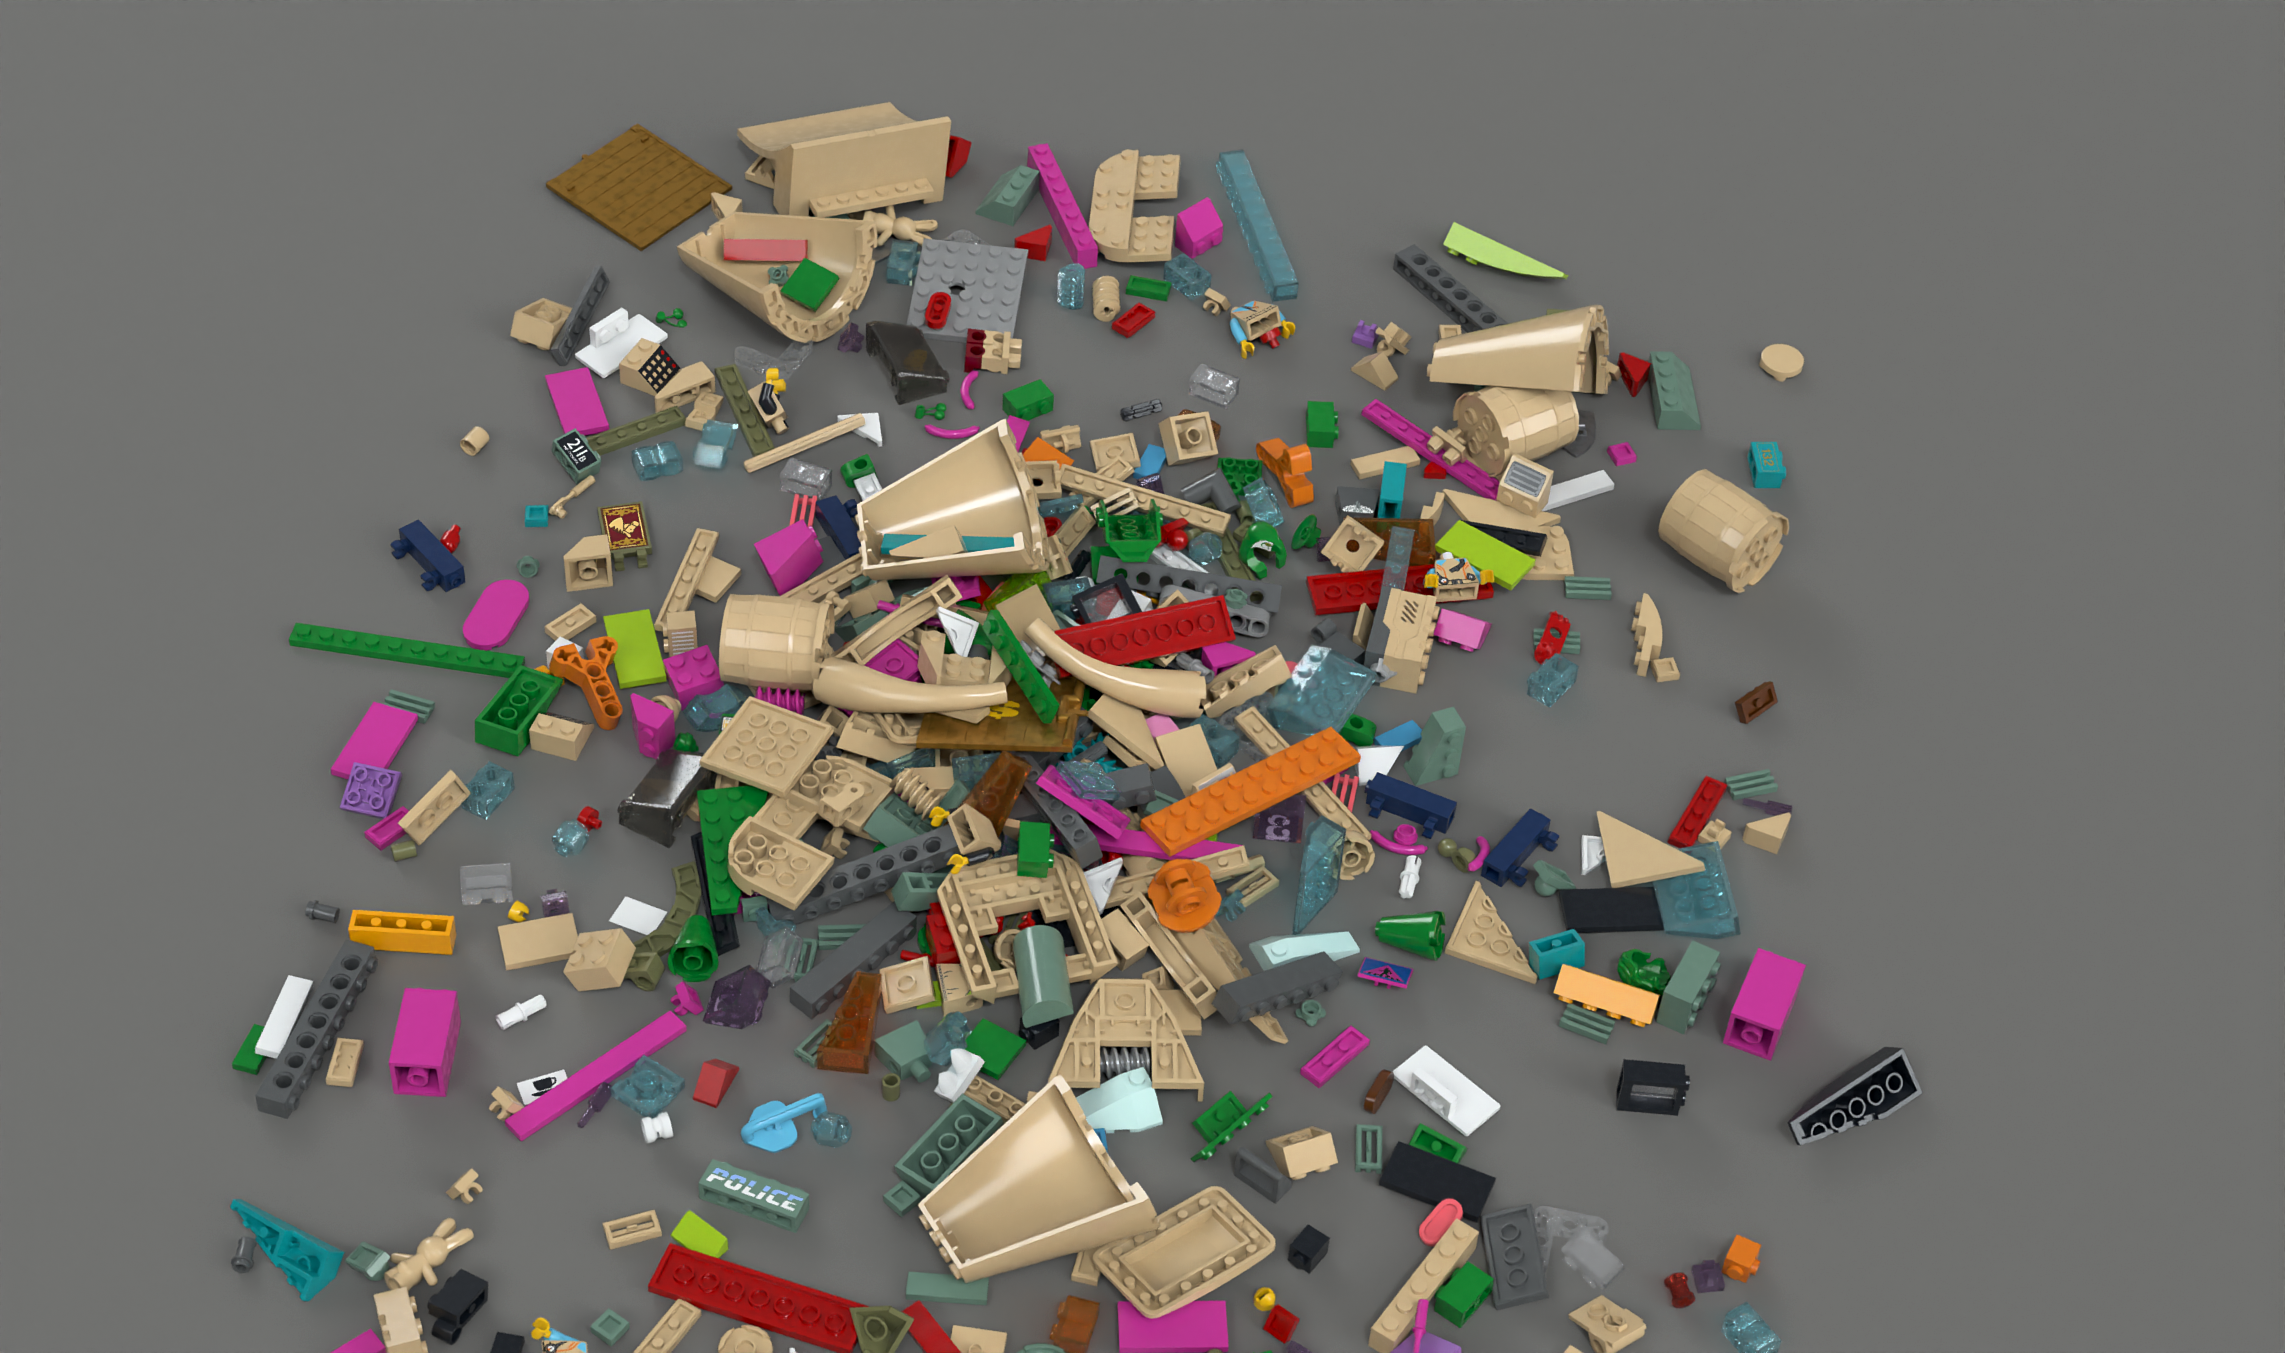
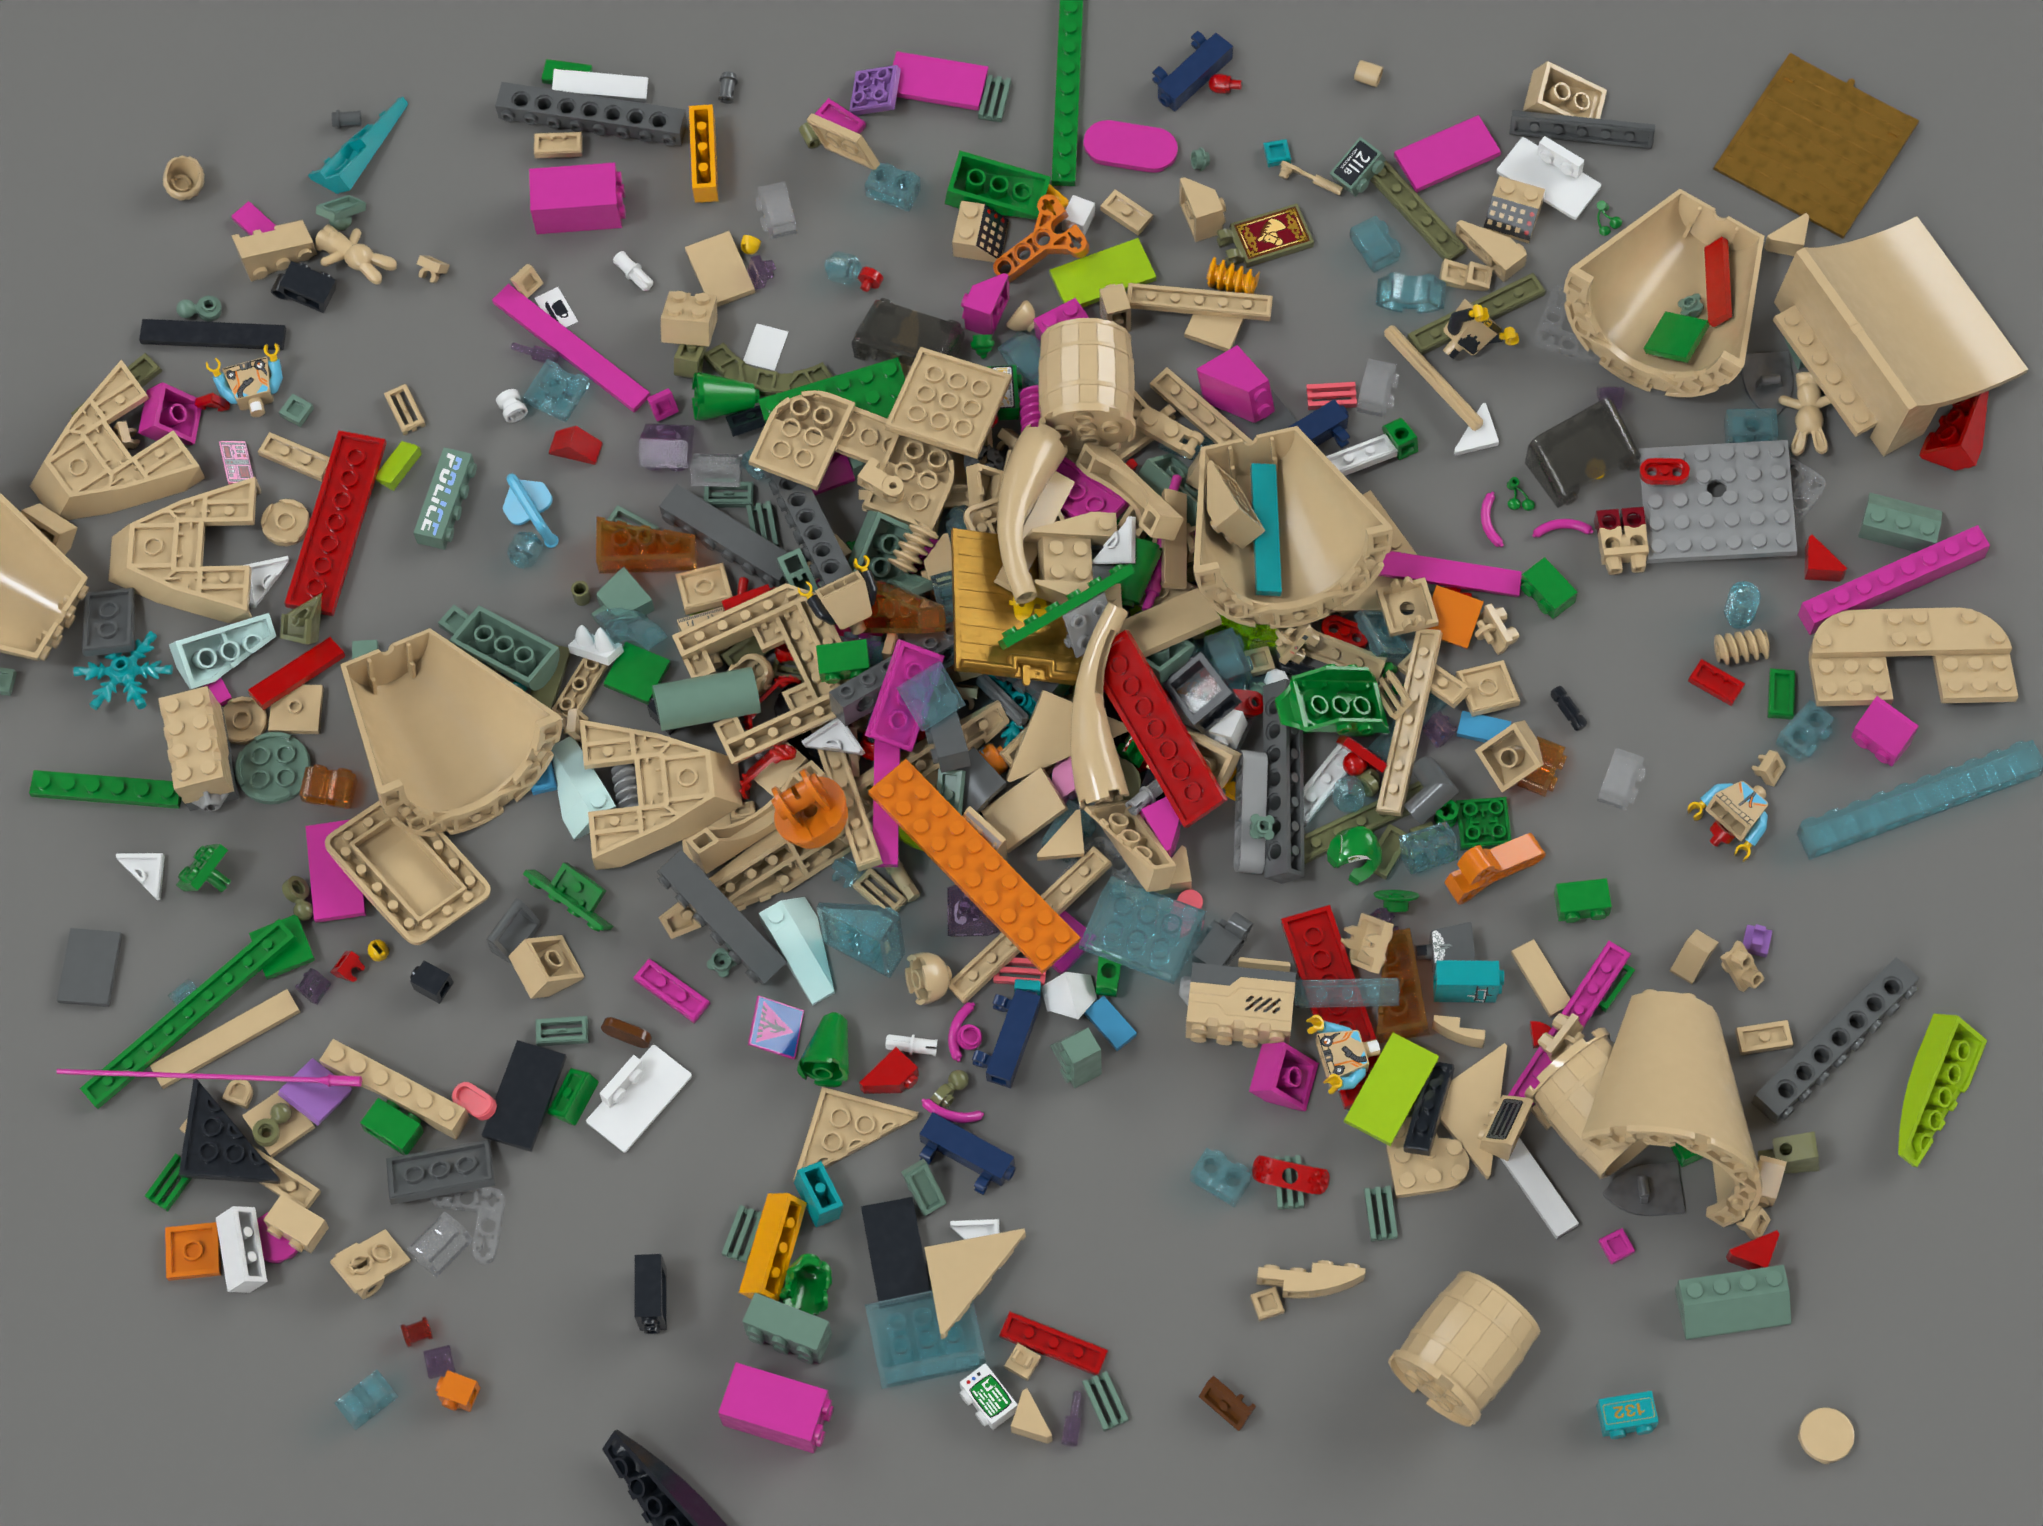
camera: 90 degrees right, 20 degrees up
(665, 558) = (1230, 278): none -> light orange piece
(1115, 929) = (775, 755): none -> red piece
(1228, 731) = (1066, 841): none -> tan tile
(1363, 787) = (1028, 985): none -> teal tile
(1437, 892) = (891, 1075): none -> red slope
(1750, 858) = (988, 1397): none -> brick

